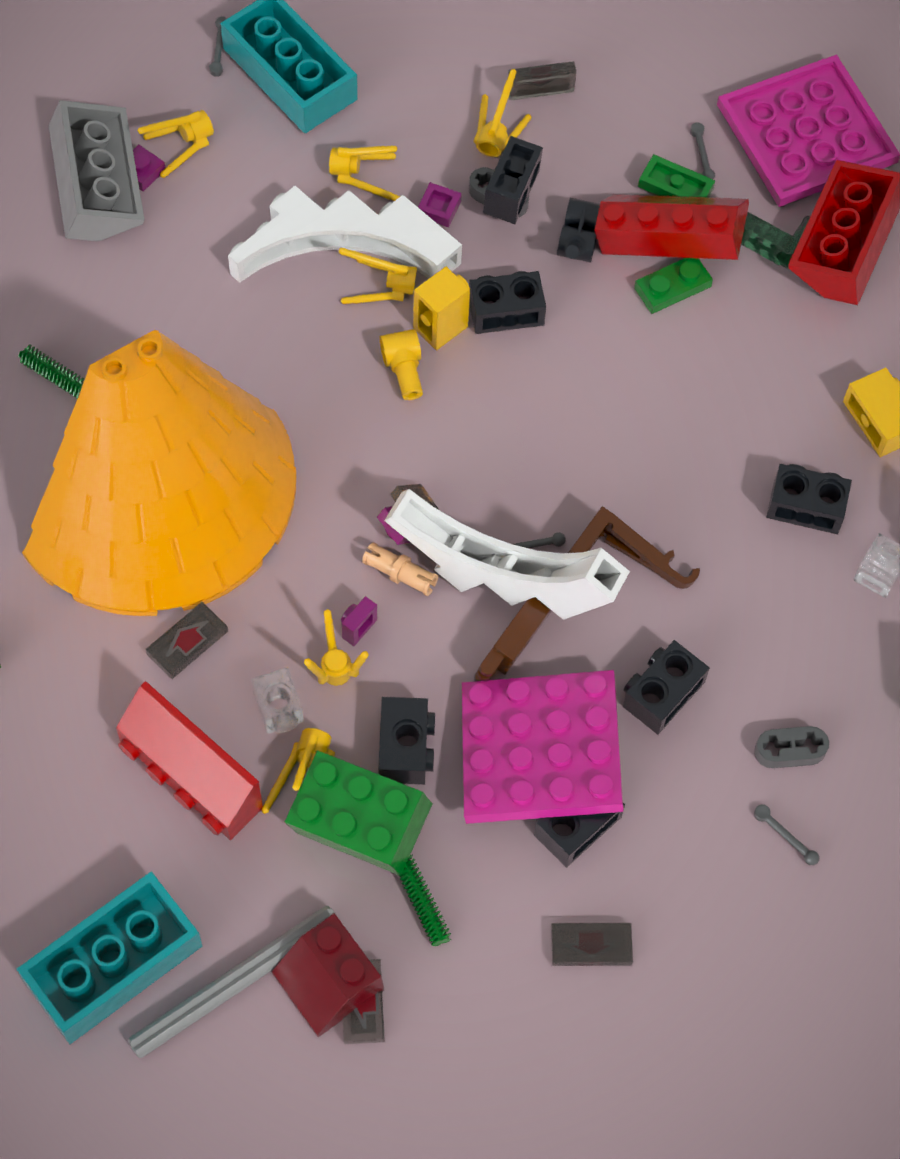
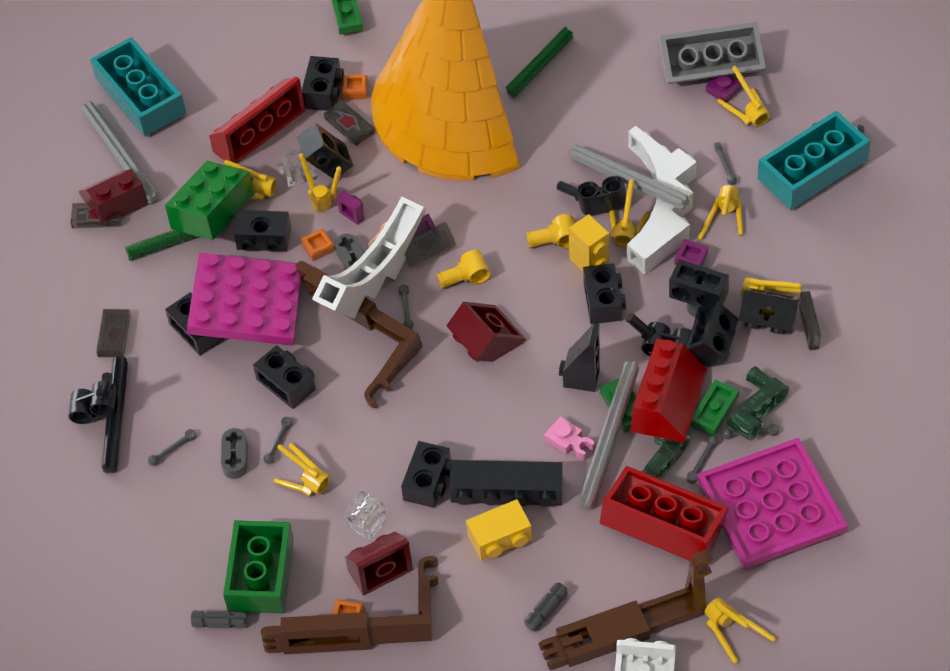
camera: 100 degrees right, 10 degrees down
(108, 689) = (322, 82): none -> black brick
(112, 638) = (354, 87): none -> orange tile
(250, 175) = (731, 178): none -> dark grey hinge
(271, 651) = (324, 150): none -> black brick
(316, 265) = (641, 181): none -> light grey axle
(339, 302) = (595, 198): none -> black beam
(419, 668) = (317, 244): none -> orange tile
(445, 623) = (344, 256): none -> dark grey beam
(468, 461) = (470, 268): none -> yellow pin
(533, 112) = (783, 305): none -> black brick
(573, 177) = (712, 334): none -> black brick
(576, 438) = (484, 331): none -> dark red slope
(637, 305) = (583, 362): none -> black slope
(692, 147) = (747, 416): none -> clear green beam
(729, 346) = (567, 436): none -> bright pink plate
(732, 289) = (608, 435): none -> light grey axle
(732, 686) = (286, 422): none -> dark grey hinge
(733, 935) = (93, 404): none -> black beam
(739, 920) = (114, 421): none -> black axle
(772, 213) = (692, 475): none -> dark grey hinge
(812, 403) = (506, 481): none -> black brick
(825, 638) = (314, 478): none -> yellow plant

